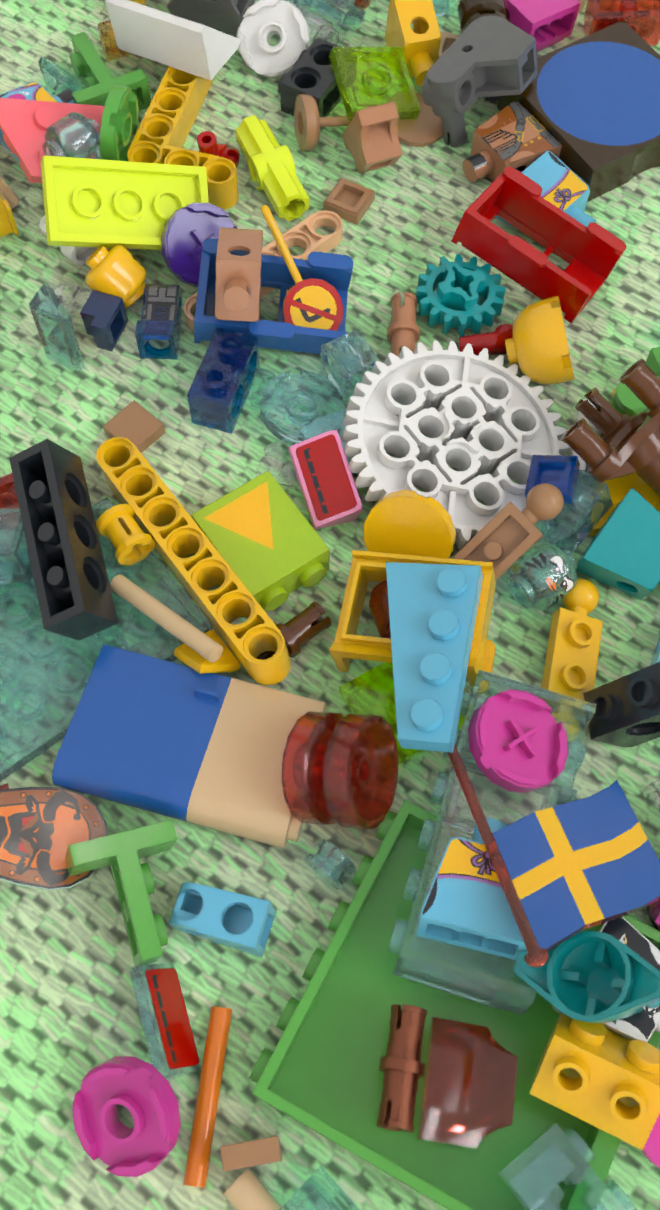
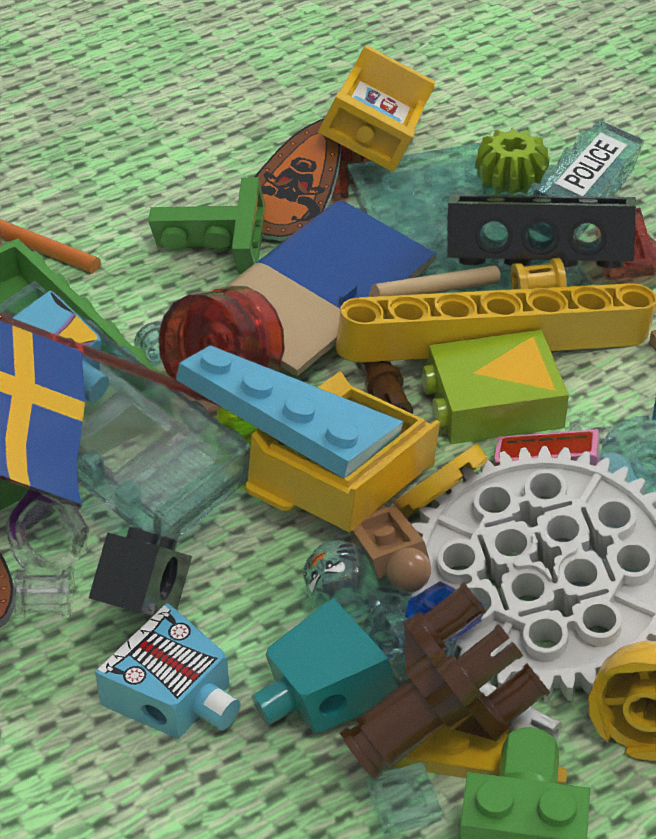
camera: 115 degrees right, 20 degrees down
(151, 1103) = (55, 188): dark pink tile -> none
(165, 1020) = (107, 226): slope -> none
(223, 917) = (155, 275): medium azure leg -> none
(517, 741) = (163, 445): dark pink tile -> none
(573, 643) = (243, 580): yellow plate -> none

